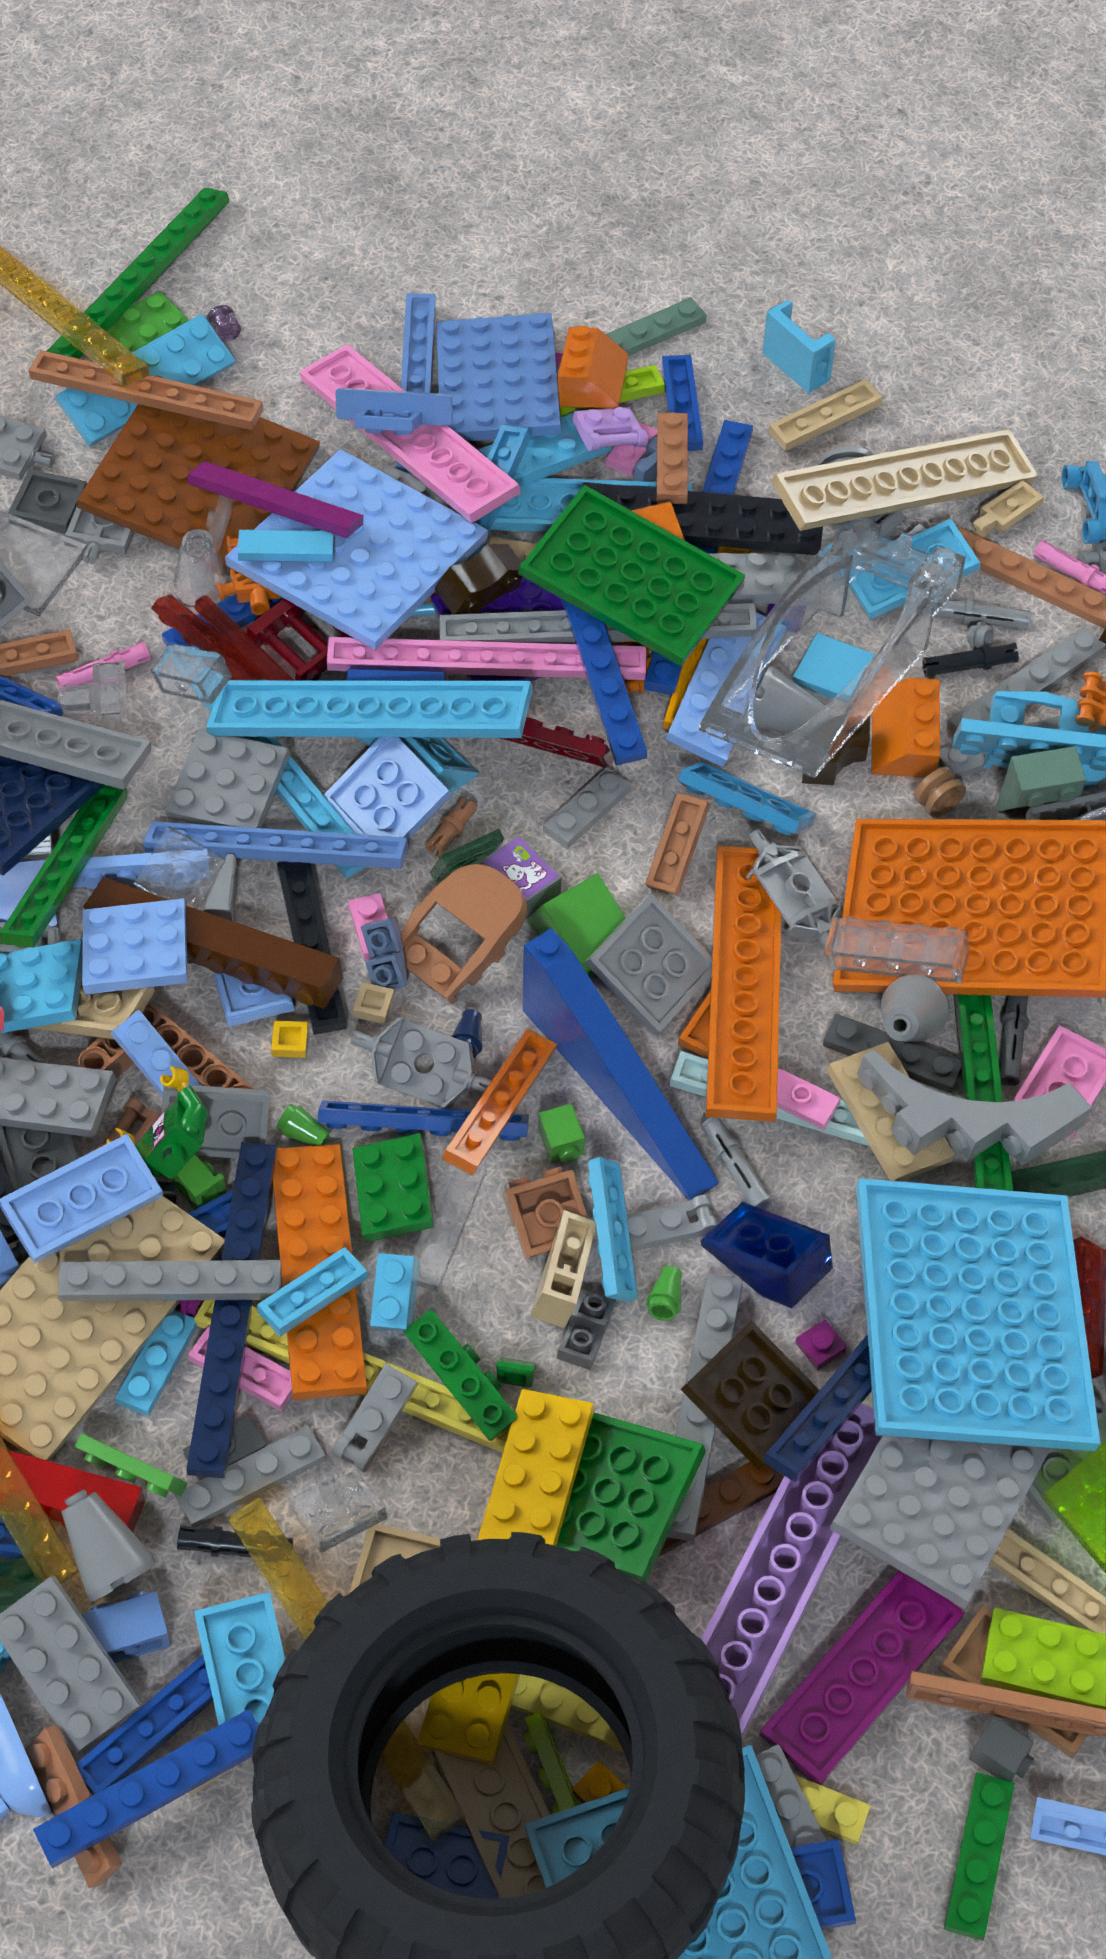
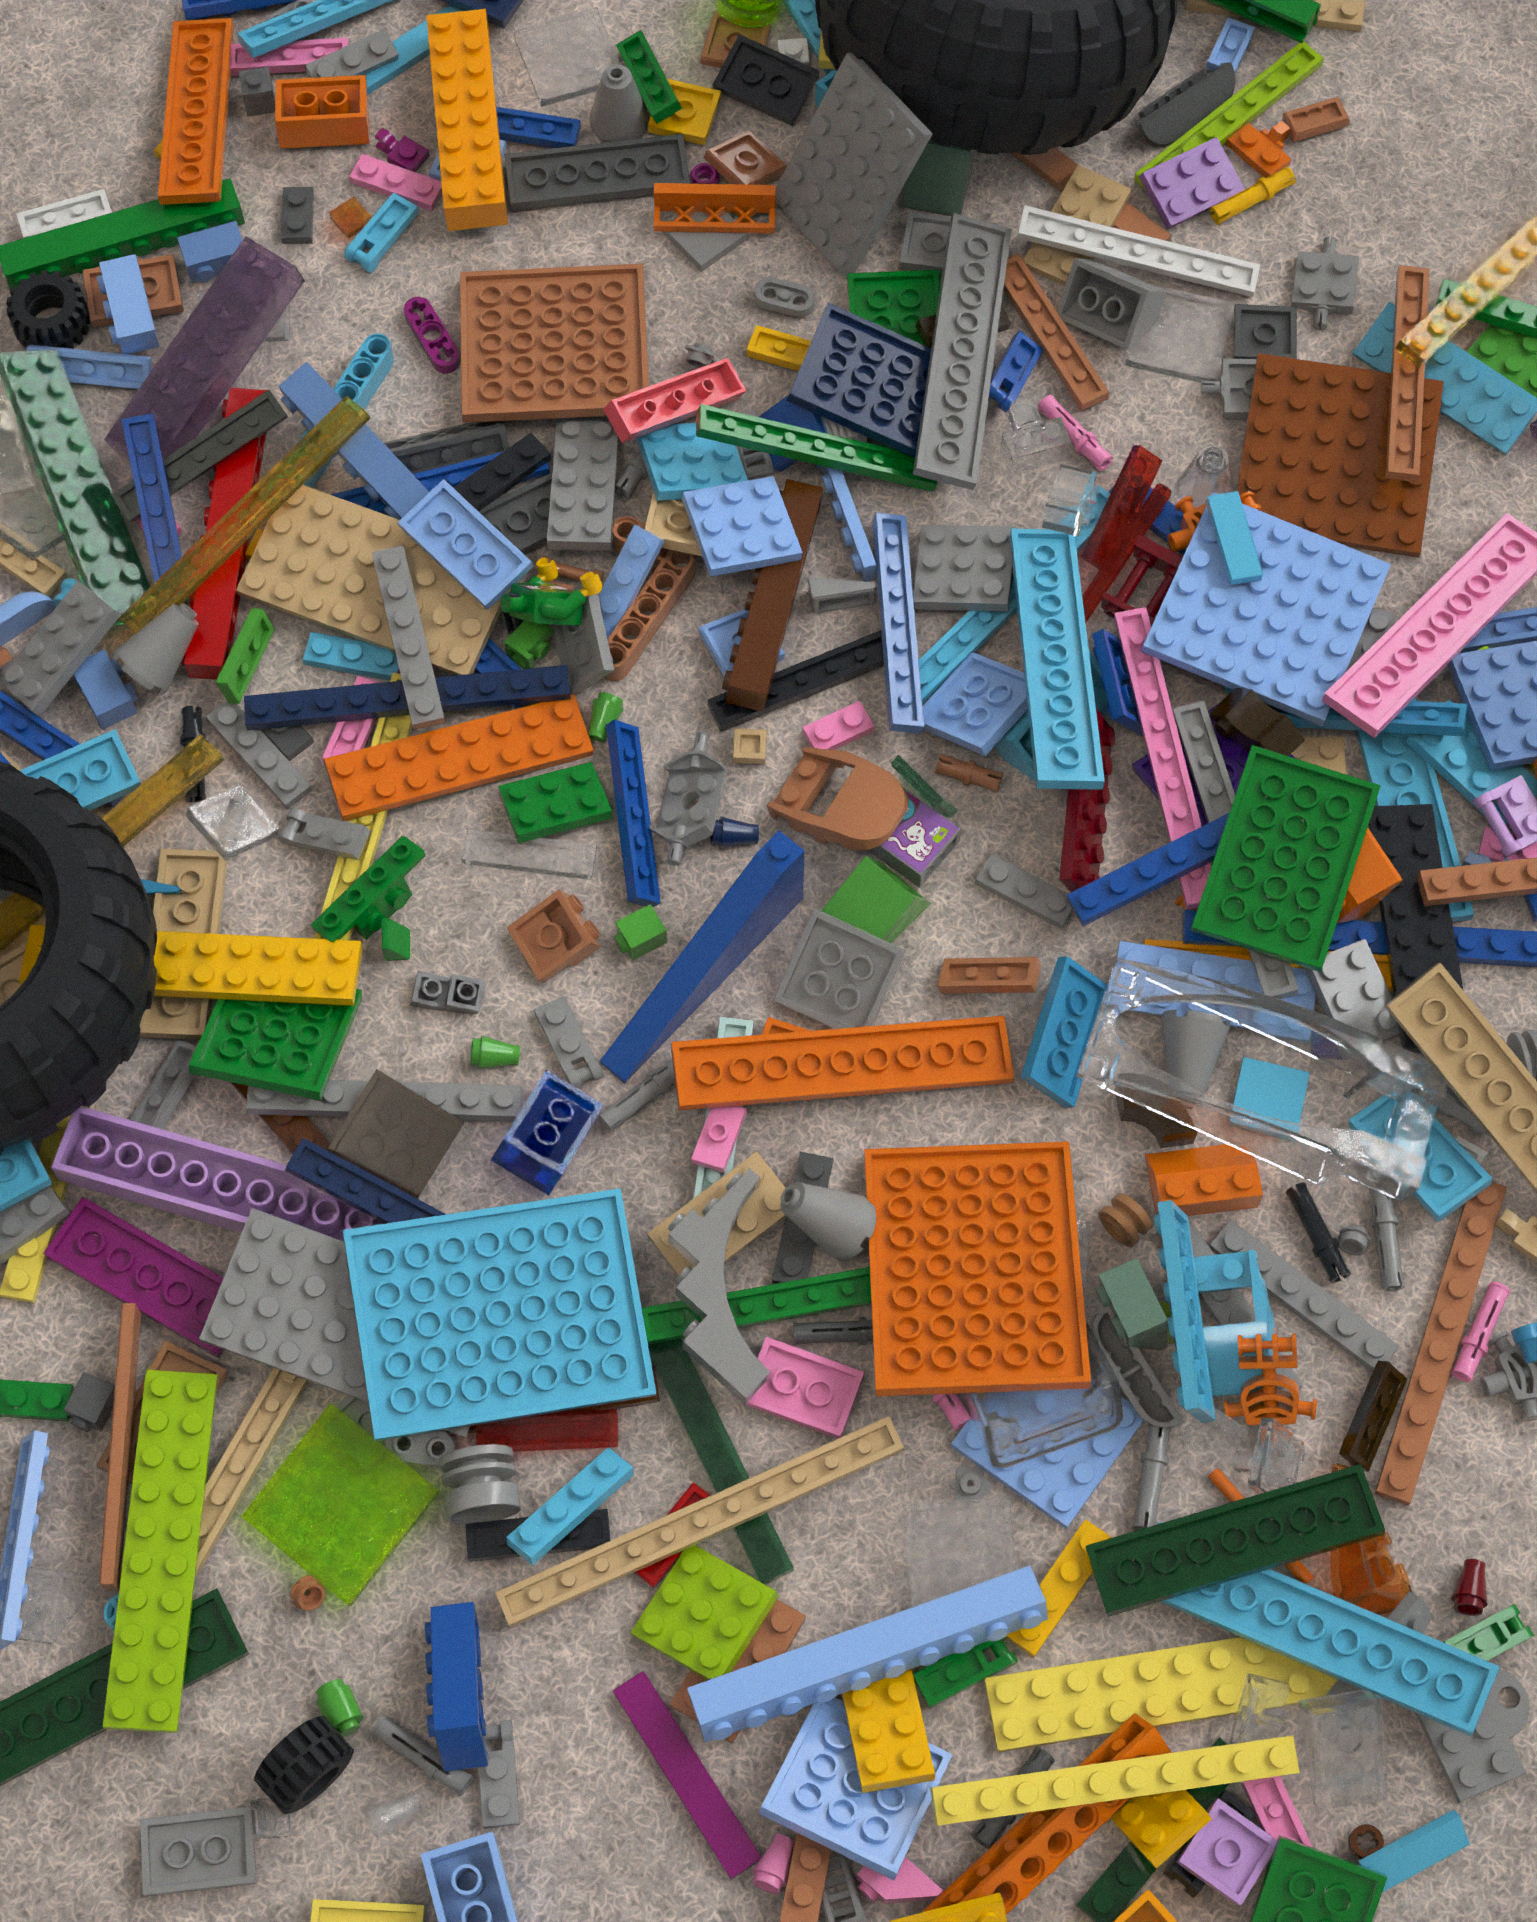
camera: 80 degrees right, 10 degrees up
(180, 869) = (842, 546): clear plate -> none
(219, 519) = (1267, 480): clear plate -> none
(275, 499) = (1290, 516): magenta tile -> none
(289, 1039) = (694, 685): yellow plate -> none
(312, 1291) = (418, 749): medium azure plate -> none
(386, 953) = (793, 746): sand blue slope -> none
(393, 409) = (1449, 598): medium blue bracket -> none
(394, 1292) = (441, 821): medium azure brick -> none
(499, 1102) = (641, 863): orange plate -> none
(564, 1270) = (496, 958): tan slope -> none
(612, 1230) = (541, 990): medium azure plate -> none
(807, 911) = (935, 1101): light grey plate -> none
(821, 1344) = (469, 1195): magenta plate -> none
(897, 949) = (899, 1194): clear brick -> none

